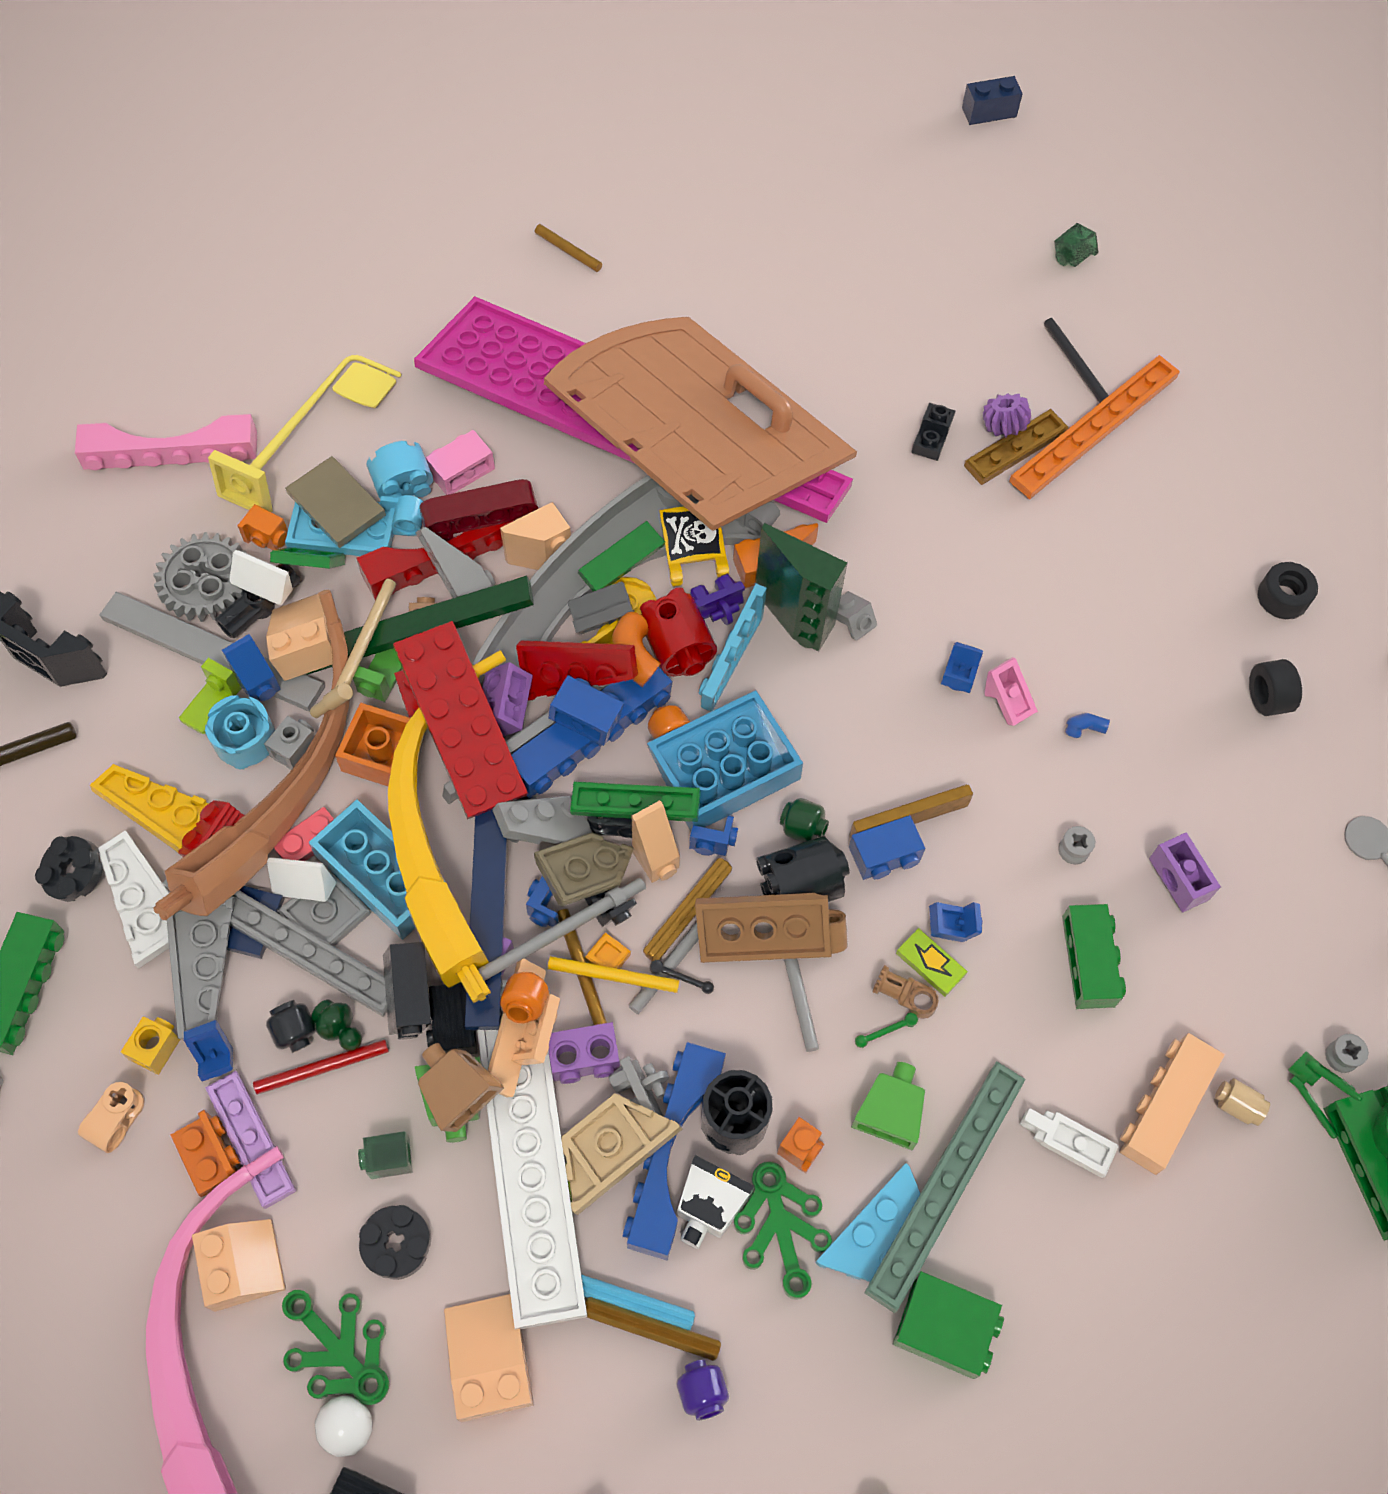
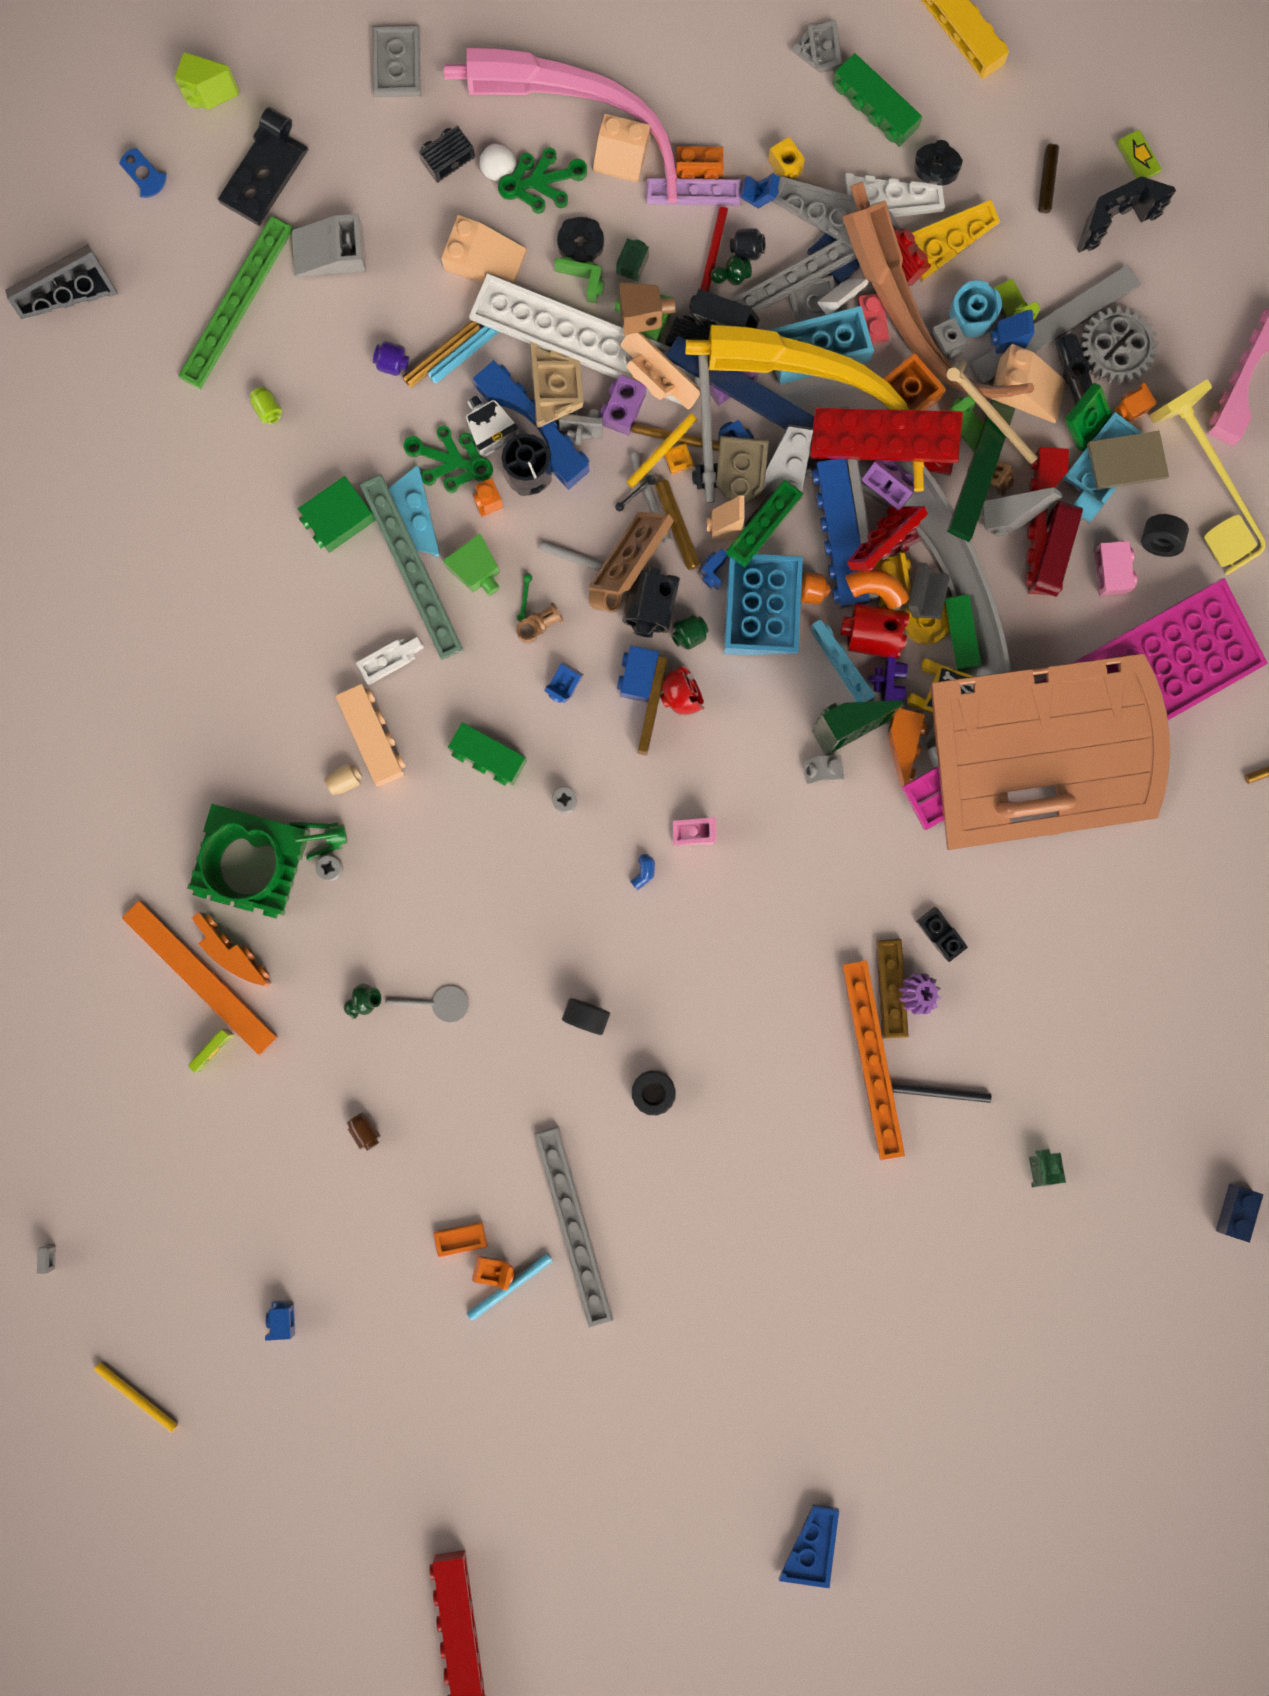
camera: 125 degrees right, 20 degrees up
(110, 1119) = (754, 119): light nougat piece -> none
(260, 578) = (1085, 372): white slope -> none
(395, 426) = (1165, 535): none -> black tyre
(400, 470) = (1126, 516): medium azure brick -> none
(447, 1182) = (586, 270): none -> bright green bracket
(524, 997) = (672, 376): orange head -> none
(534, 537) = (1011, 581): light nougat slope -> none
(586, 709) = (848, 525): blue brick -> none
(877, 788) = (681, 692): none -> red cylinder
(931, 962) = (548, 654): lime tile -> none
(962, 667) = (734, 812): blue bracket -> none
(1184, 872) = (500, 851): medium lavender brick -> none

